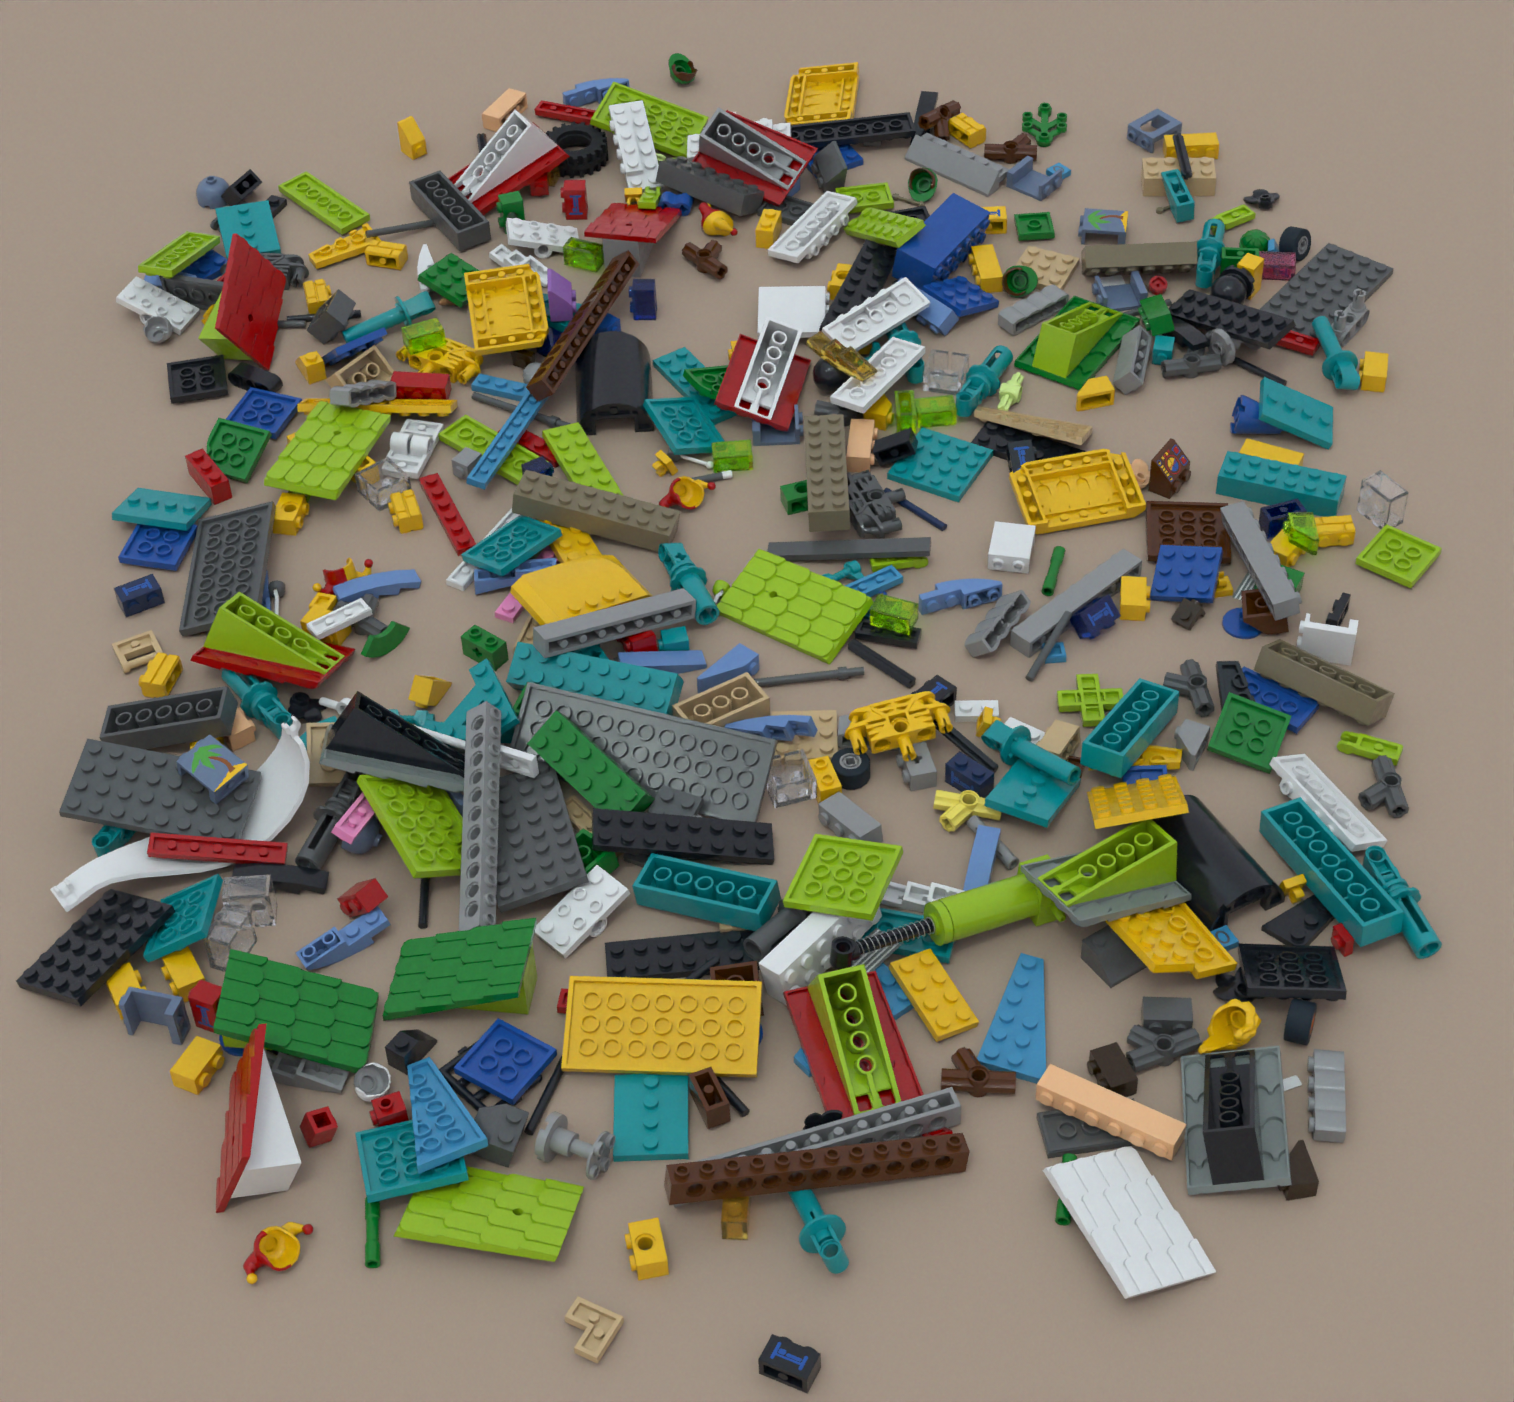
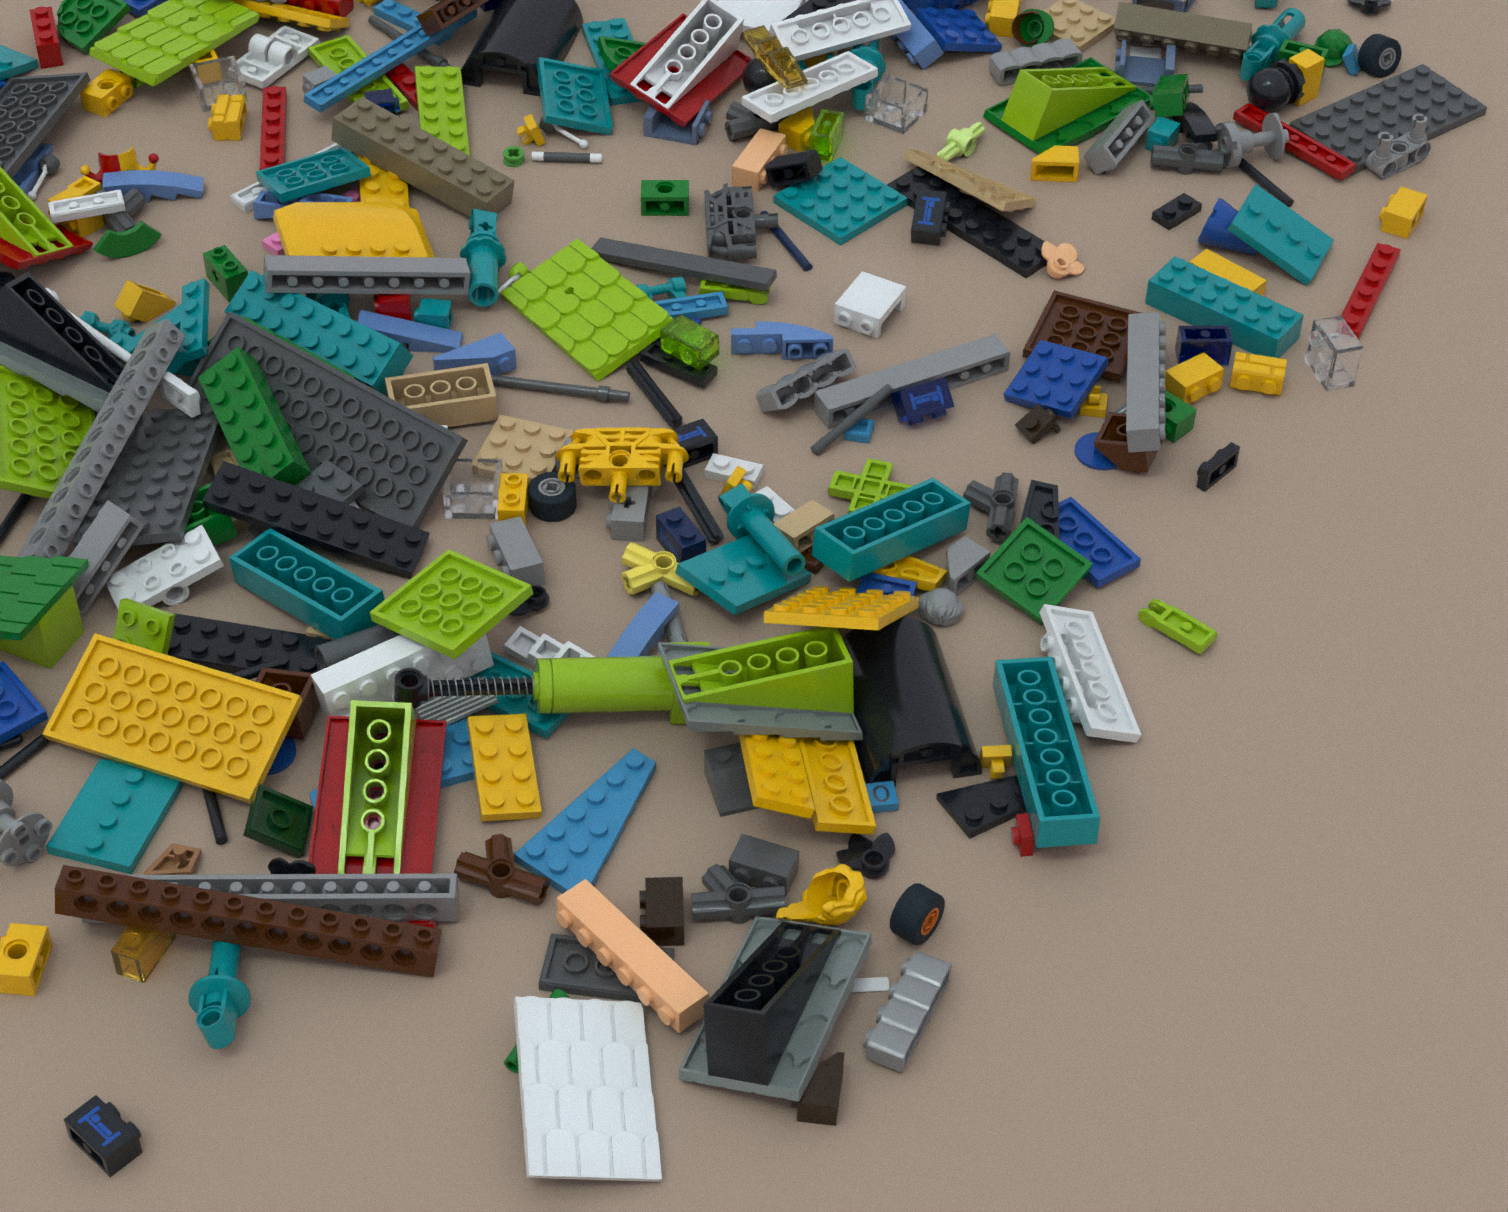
camera: 15 degrees right, 0 degrees up
(532, 897) = (104, 547): none -> light grey brick
(595, 959) = (144, 626): none -> lime plate
(655, 486) = (513, 156): none -> bright green bush
(686, 493) = (537, 165): yellow piece -> none
(709, 1097) = (184, 810): reddish brown brick -> none
(719, 1140) = (175, 861): none -> medium nougat piece
(732, 456) = (610, 139): clear neon green brick -> none
(777, 727) = (485, 430): medium blue slope -> none
(785, 1085) = (278, 821): none -> dark green tile
(826, 473) = (695, 176): dark tan brick -> none
(935, 411) = (863, 143): clear neon green brick -> none
(982, 381) = (932, 122): teal piece -> none
(1051, 578) = (914, 333): green piece -> none
(1077, 490) = (975, 260): yellow slope -> none
(1133, 598) = (981, 392): yellow brick -> none
(1157, 285) = (1195, 67): red tile -> none
(1169, 470) = (1096, 262): reddish brown slope -> none
(1191, 779) = (940, 607): none -> light grey hair
(1203, 411) = (1176, 211): none -> black plate
(1234, 217) = (1324, 14): lime hinge -> none
(1235, 319) = (1252, 115): black plate -> none
(1278, 265) = (1345, 74): clear pink brick -> none
(1291, 972) = (935, 853): black plate -> none
(1302, 531) = (1213, 361): clear neon green slope -> none
(1323, 682) = (1154, 536): dark tan brick -> none
(1327, 641) = (1184, 492): white panel -> none
(1339, 364) = (1362, 193): teal piece -> none
(1376, 438) = (1370, 287): none -> red plate
(1386, 790) = (1169, 678): dark grey piece -> none
(1398, 556) = (1326, 420): lime plate -> none
(1415, 925) = (1116, 807): teal piece -> none

